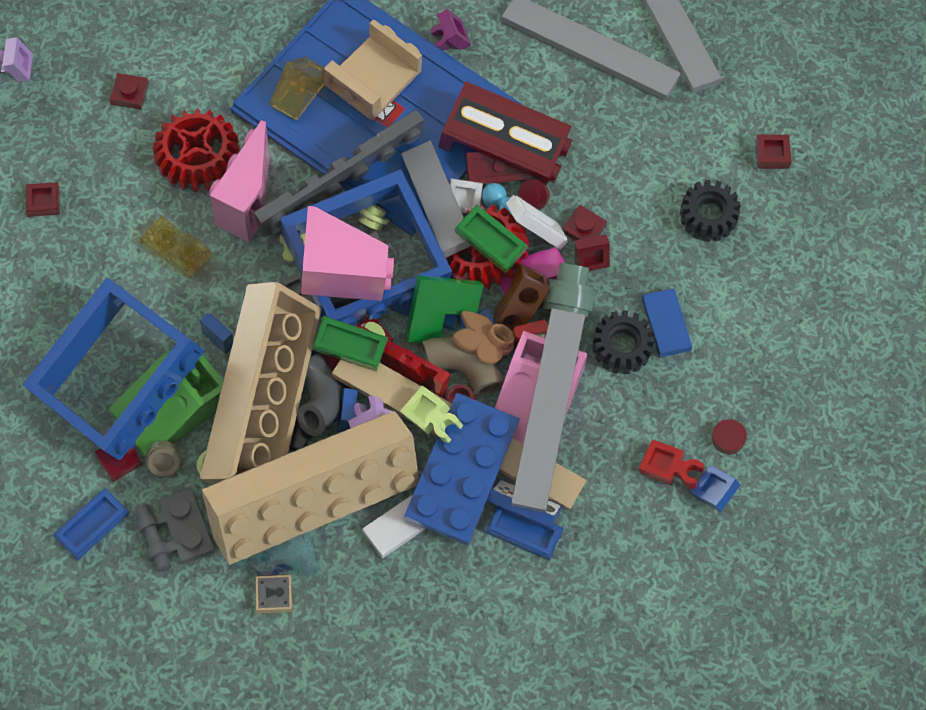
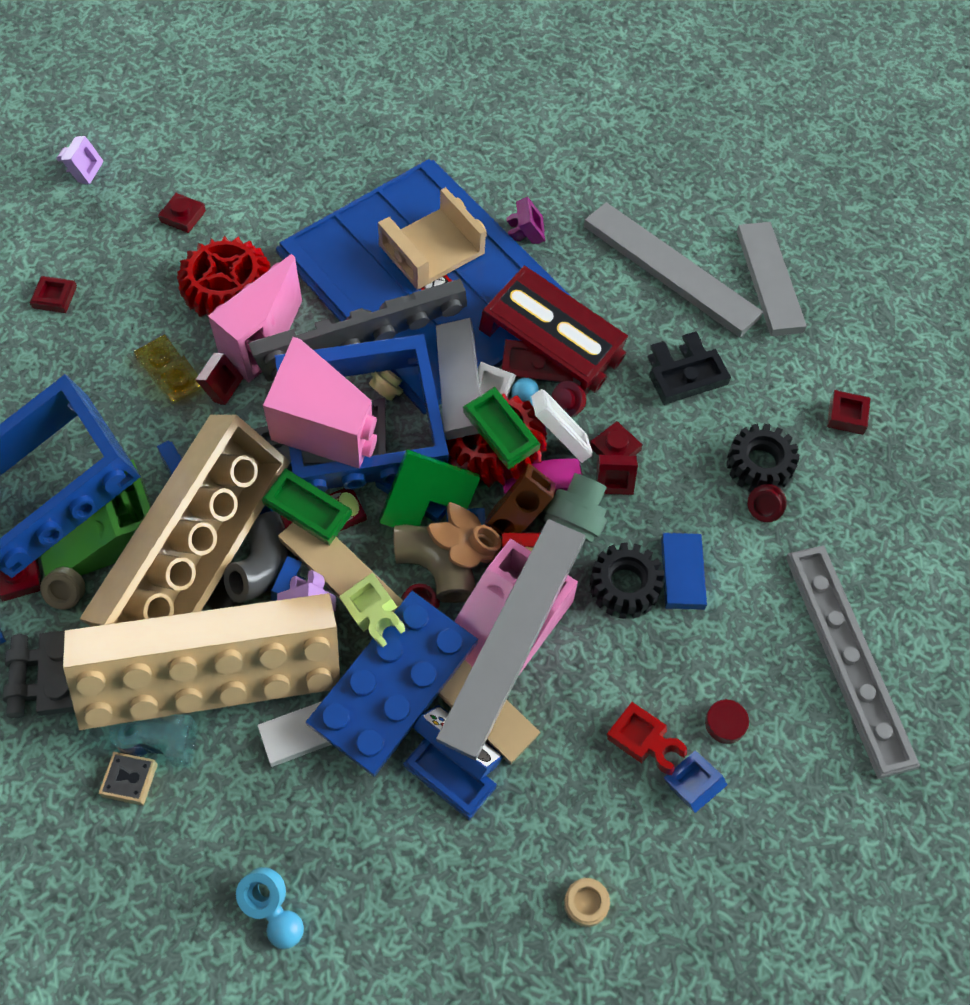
camera: 15 degrees right, 5 degrees down
(226, 245) = (219, 378): none -> dark red plate
(298, 86) = (348, 238): clear yellow slope -> none
(414, 368) = (374, 552): red wing -> none
(433, 671) = (283, 926): none -> medium azure plate
(629, 150) = (689, 376): none -> black plate
(655, 597) = (587, 902): none -> tan tile
(722, 249) = (767, 503): none -> dark red plate
(815, 364) = (852, 663): none -> light grey tile

